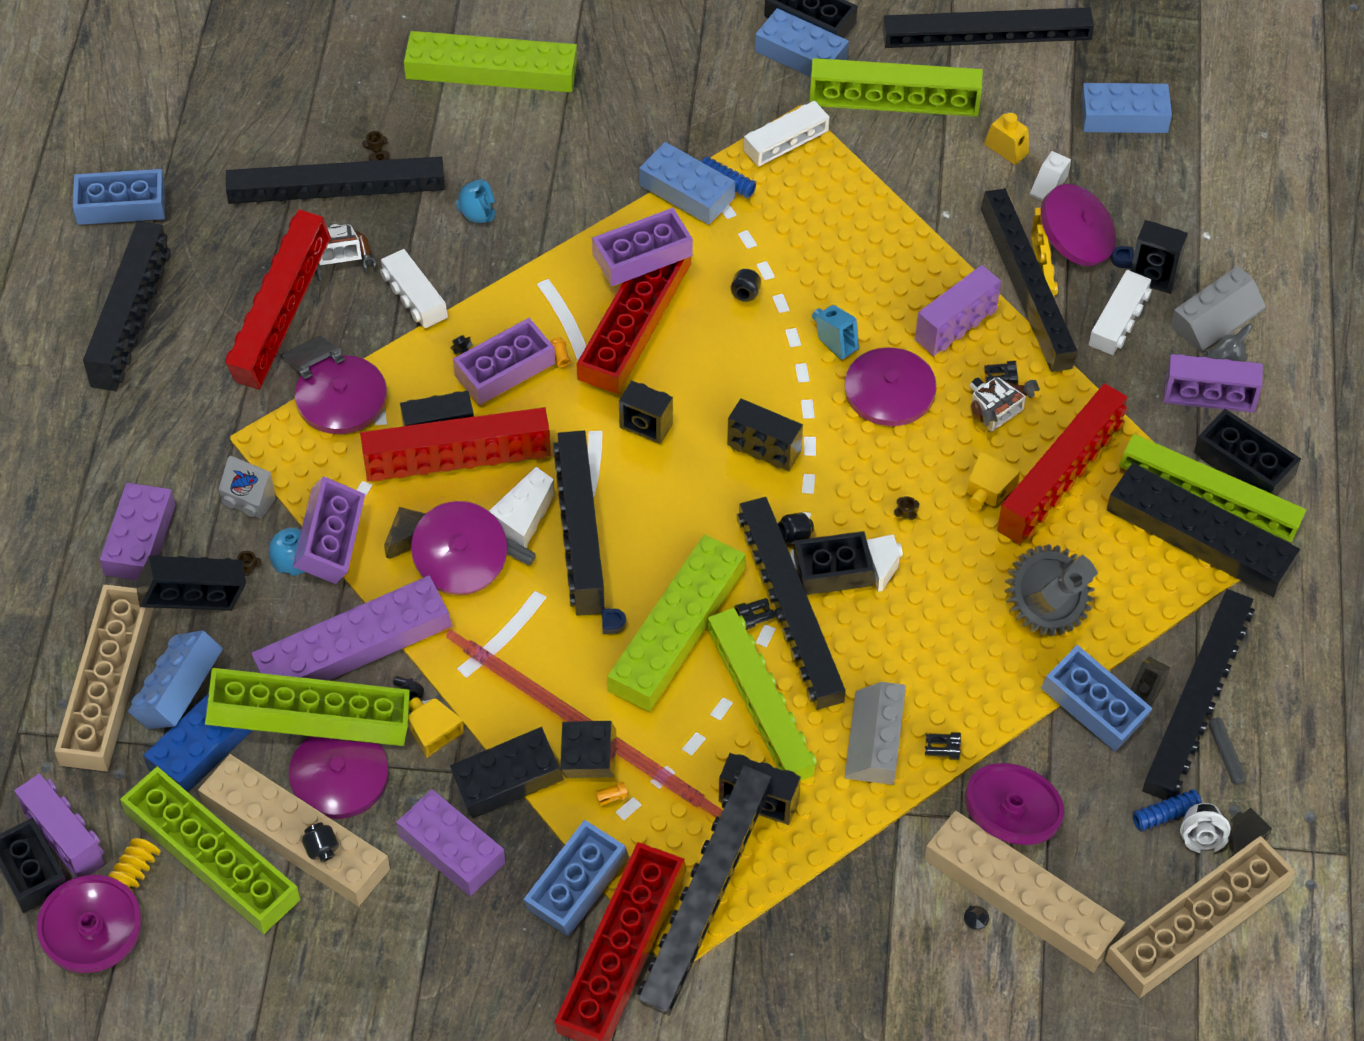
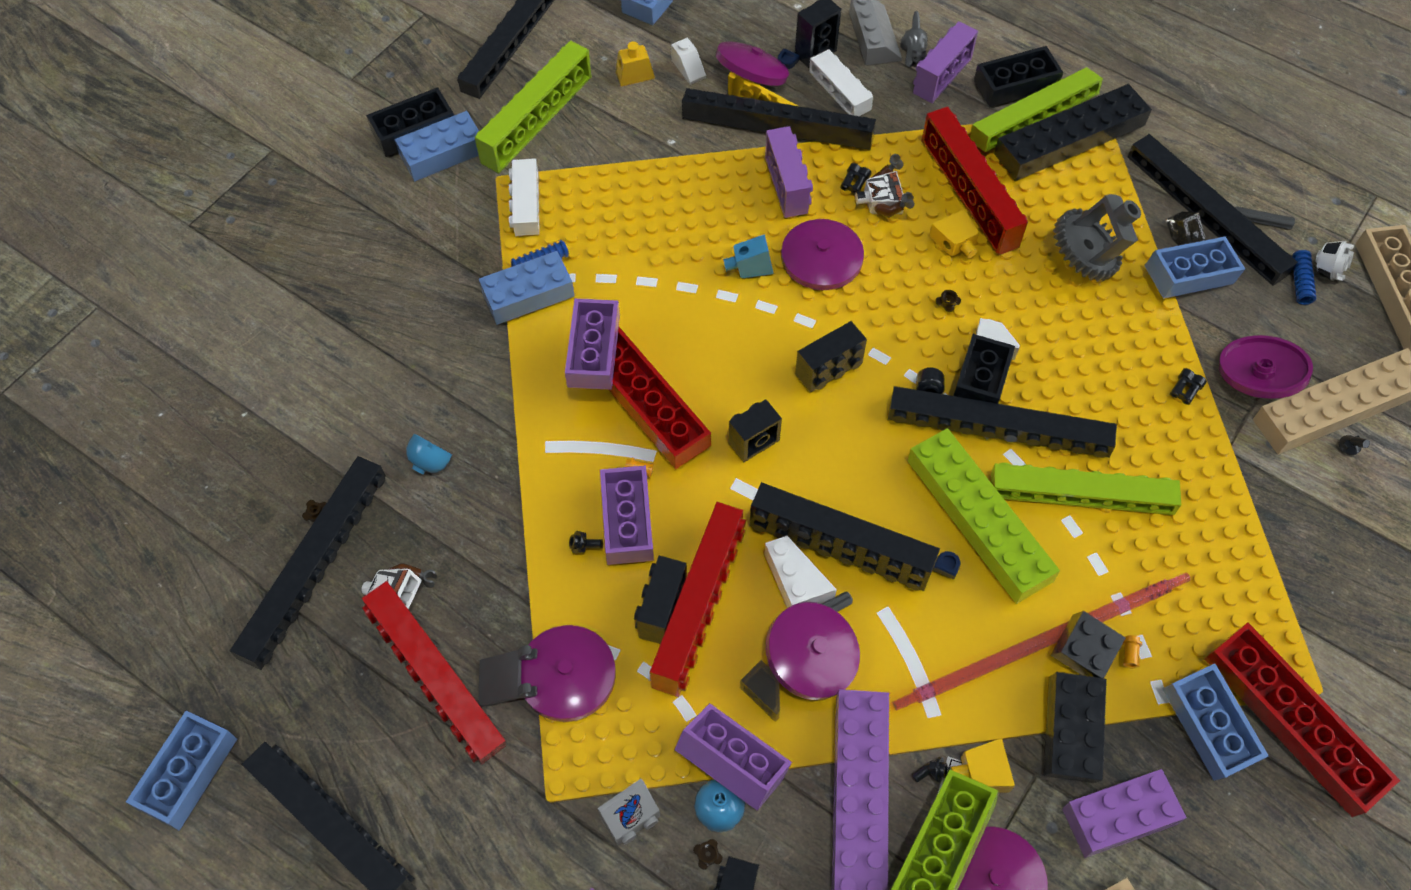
camera: 60 degrees left, 5 degrees up
(375, 141) = (287, 500): dark brown plate -> none
(413, 289) = (488, 552): white brick -> none
(490, 61) = (274, 370): lime brick -> none
(705, 891) = (1280, 618): black brick -> none
(746, 285) = (662, 298): black head -> none
(752, 619) = (989, 458): black piece -> none
(783, 795) = (1186, 531): black brick -> none
(875, 733) = (1160, 424): light grey slope -> none
(1245, 829) = (1350, 233): clear smoke slope -> none

